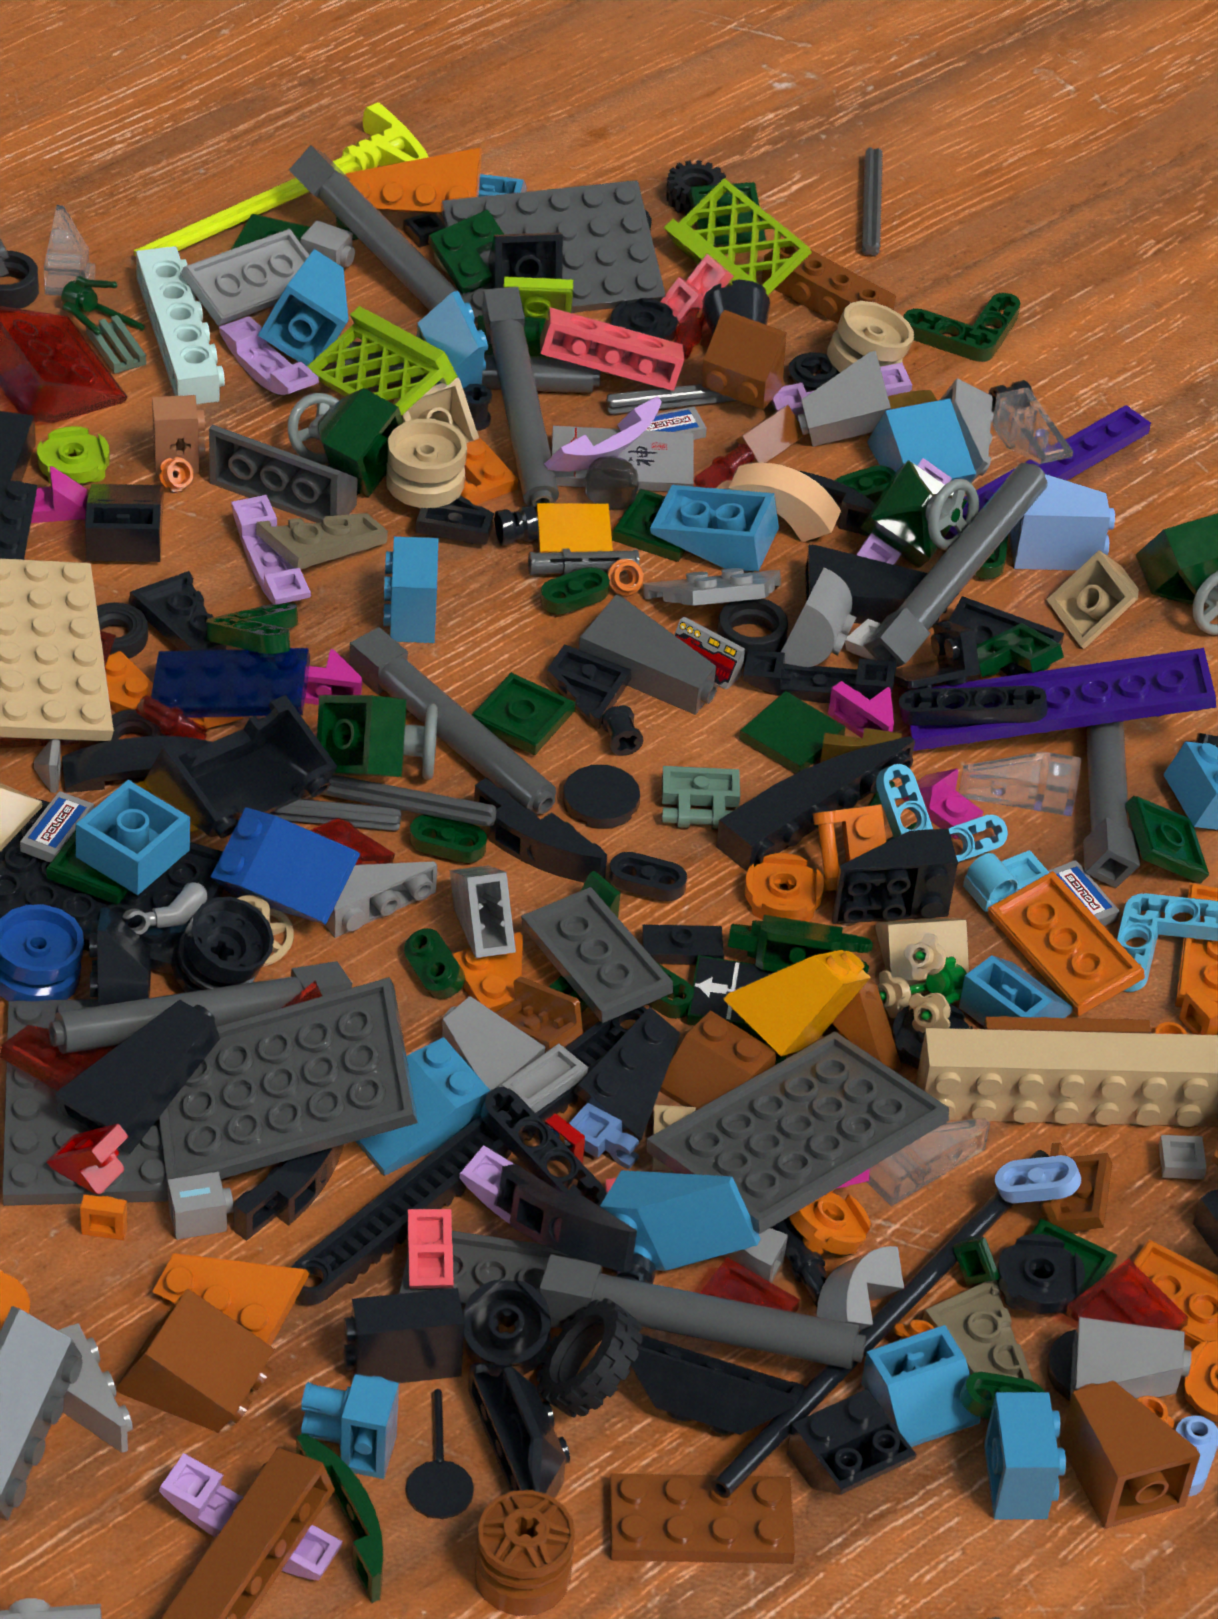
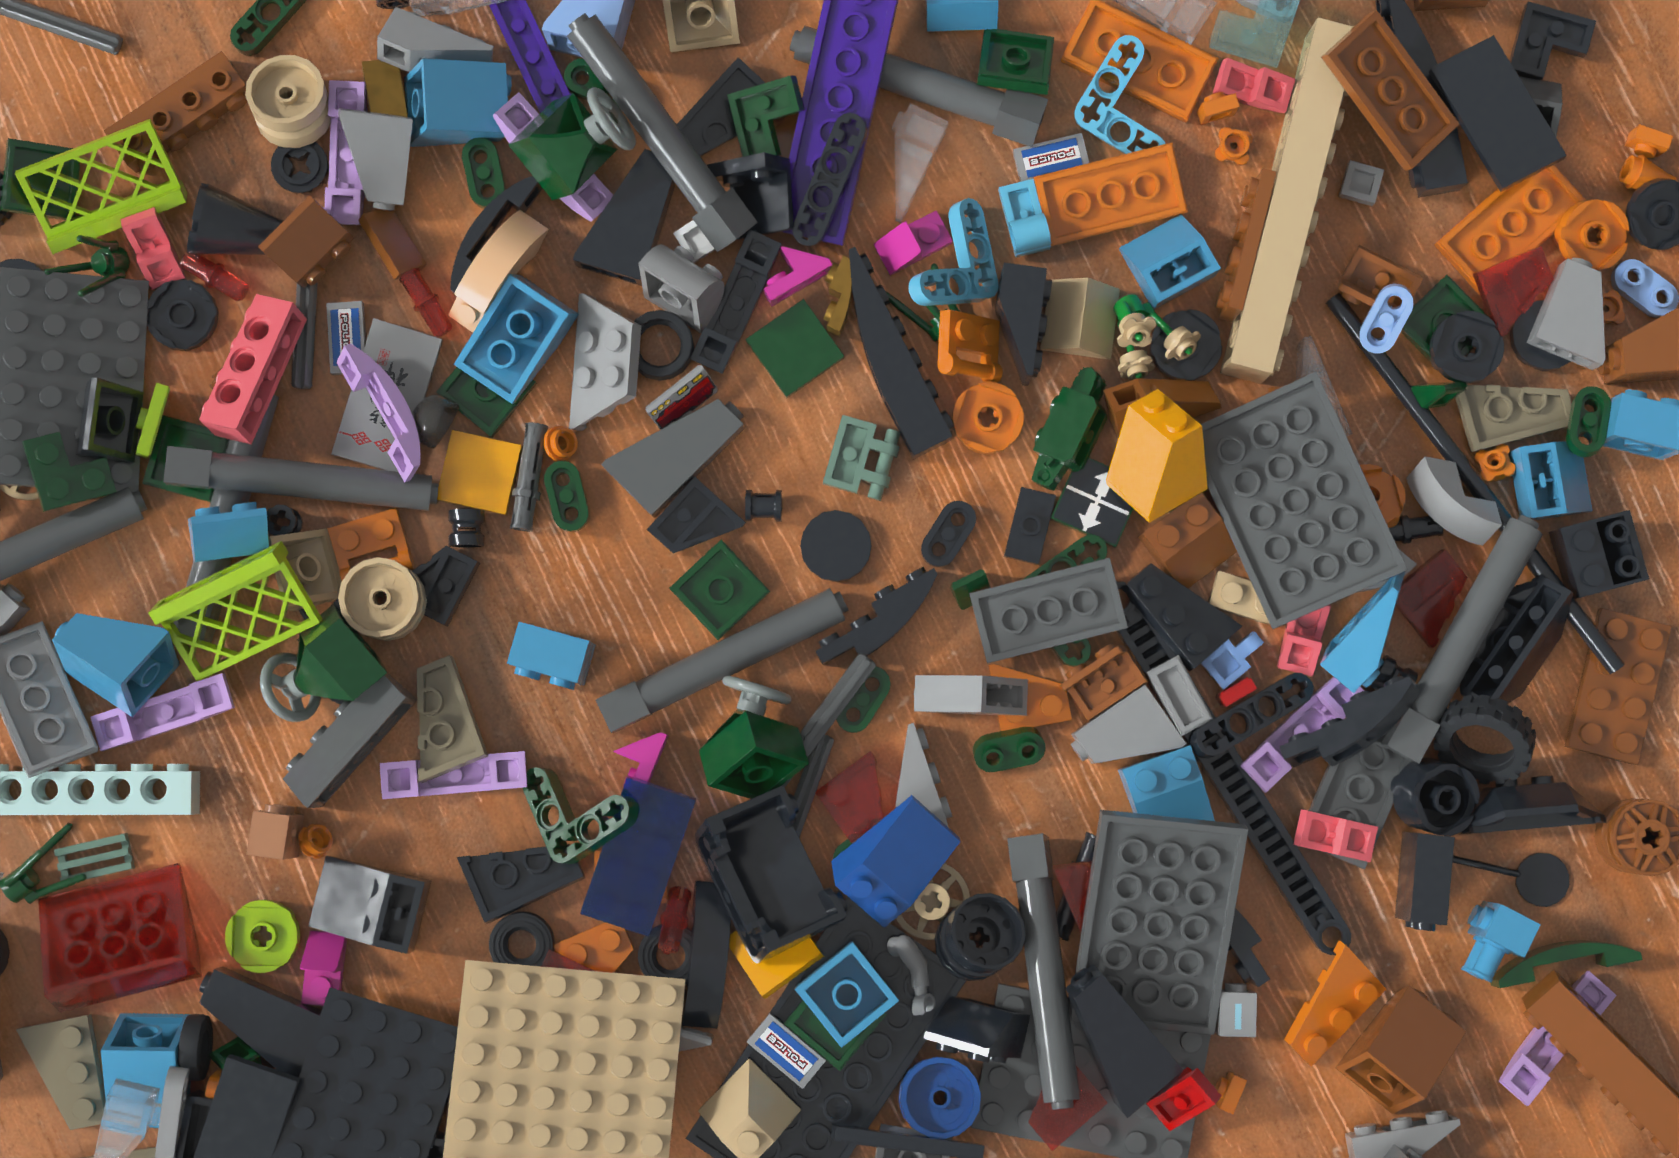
camera: 70 degrees left, 40 degrees up
(668, 264) = (108, 261): none -> dark green plant

